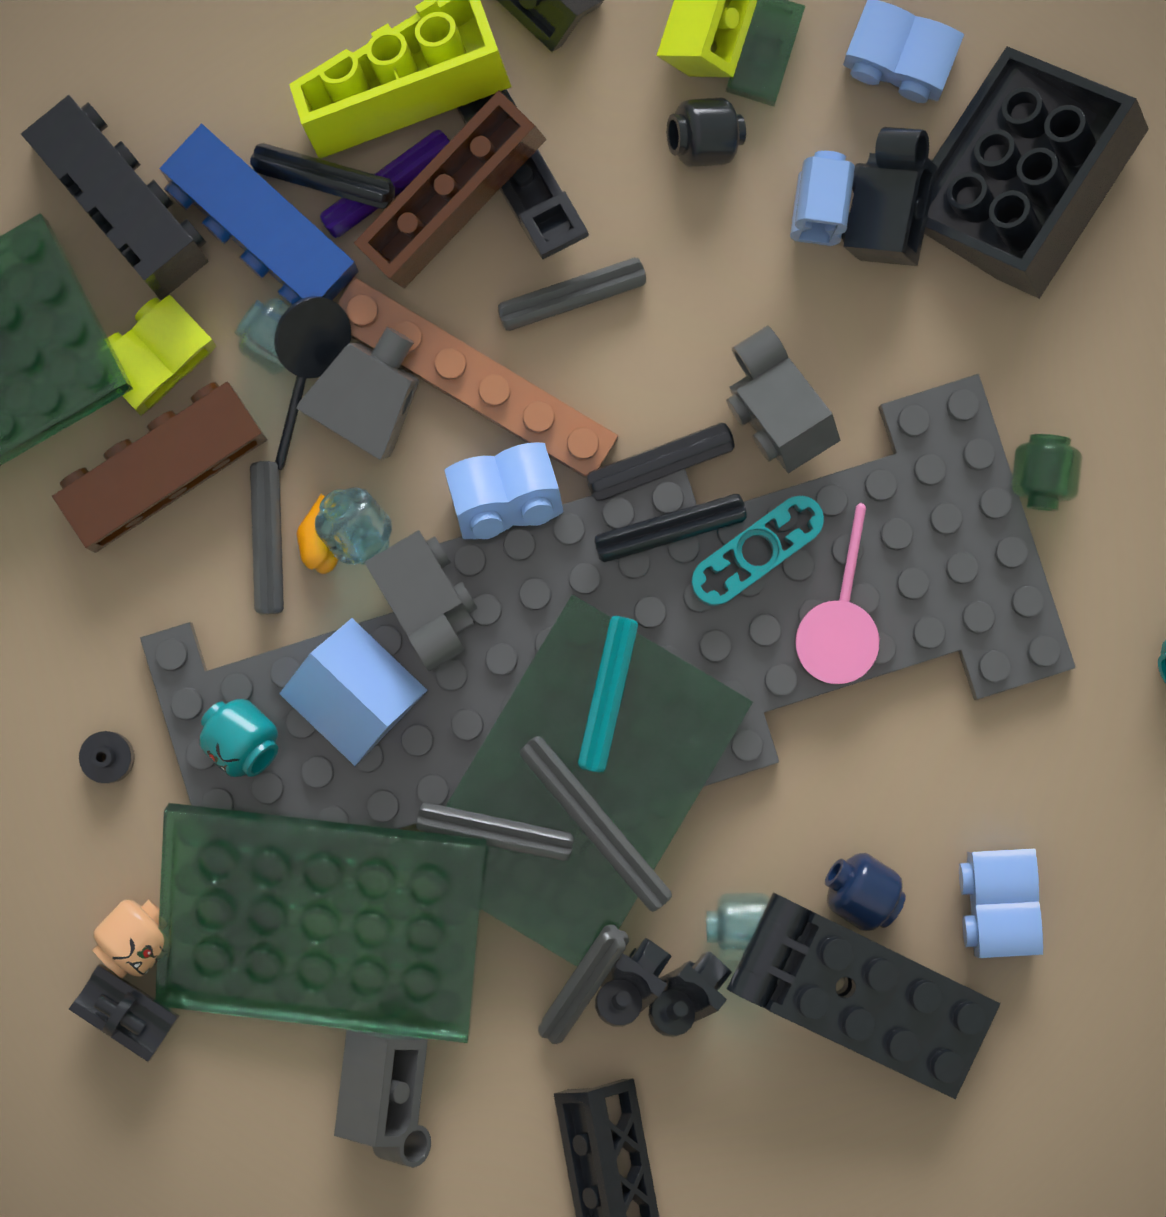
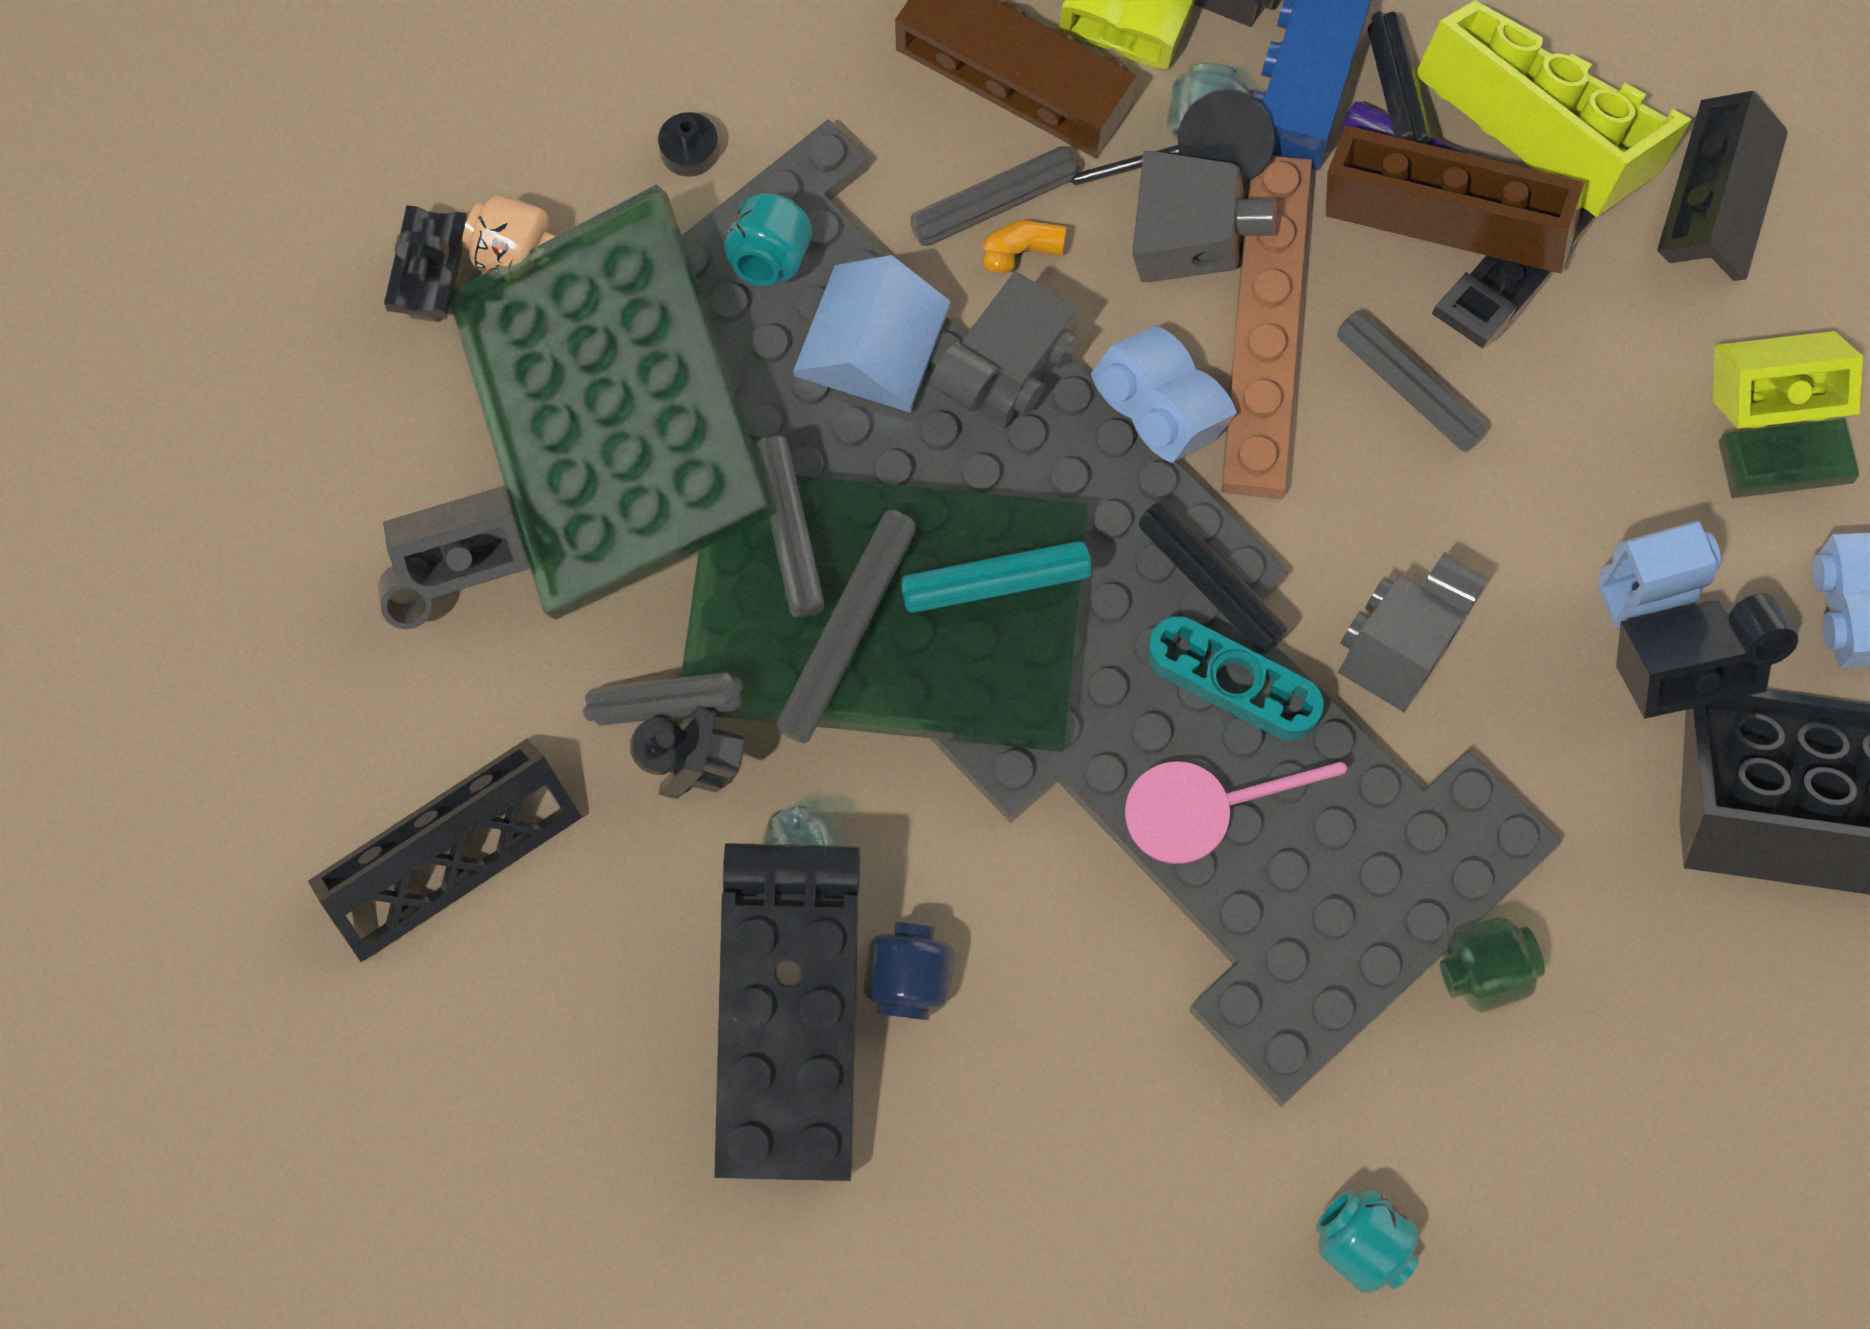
camera: 70 degrees right, 15 degrees down
(353, 525) = (1052, 256): clear light blue head -> none
(660, 461) = (1280, 545): black axle -> none
(689, 995) = (699, 815): black hips -> none
(705, 132) = (1662, 433): black head -> none
(1003, 903) = (969, 1137): light blue brick -> none

